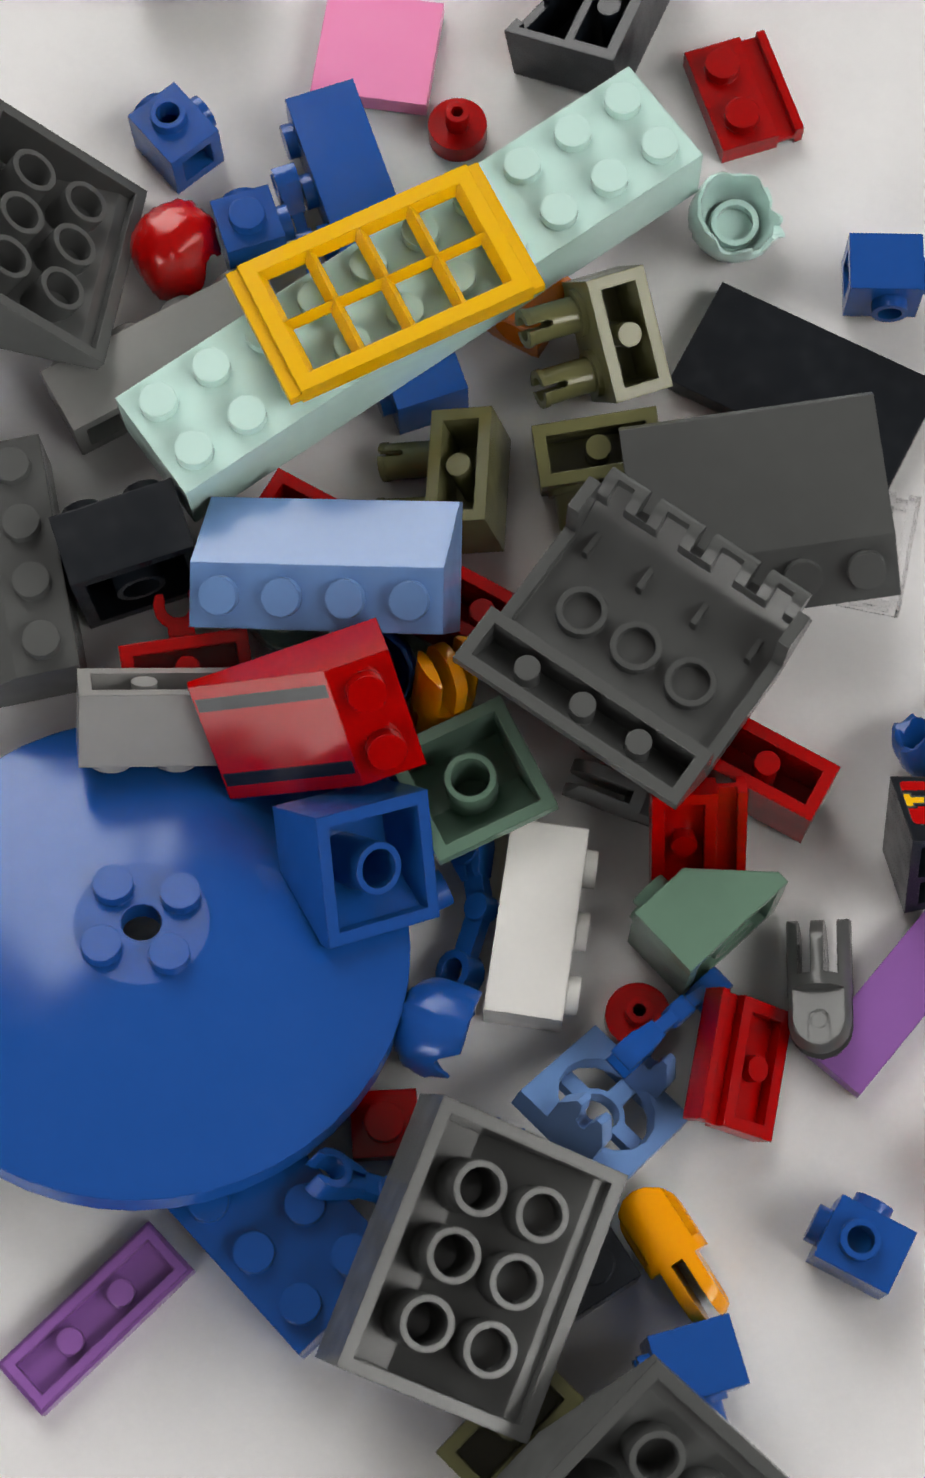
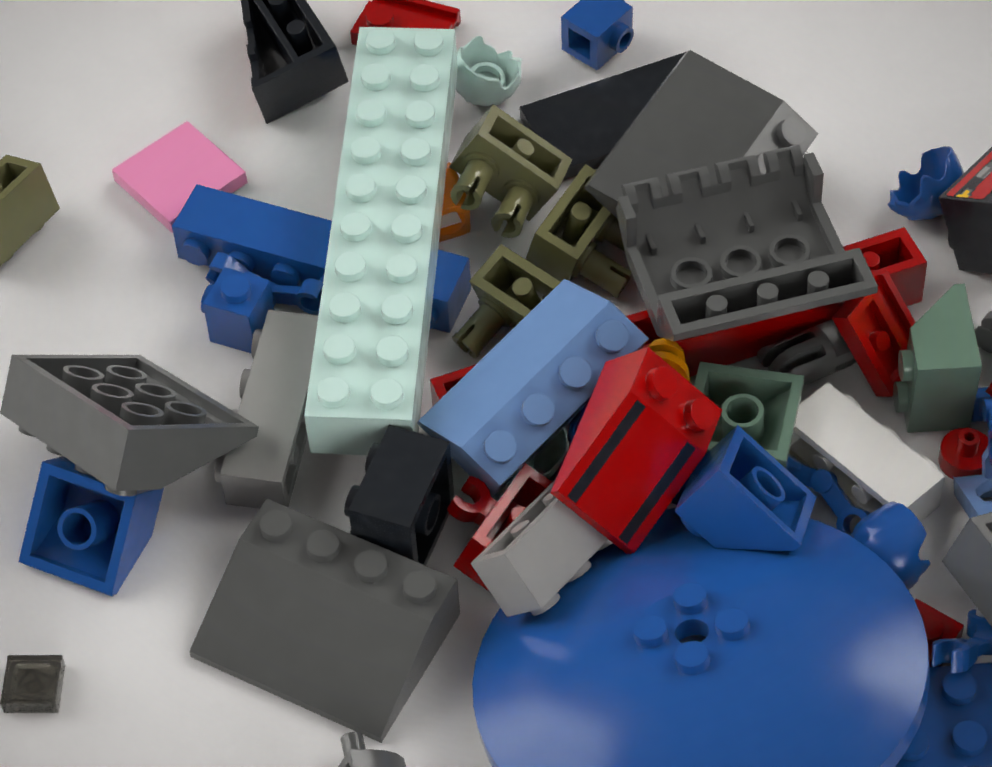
camera: 50 degrees left, 20 degrees down
(173, 248) = (206, 355): red hair -> none
(176, 136) = (124, 308): blue brick -> none
(277, 332) = (358, 294): yellow piece -> none
(457, 130) = (276, 170): red tile -> none

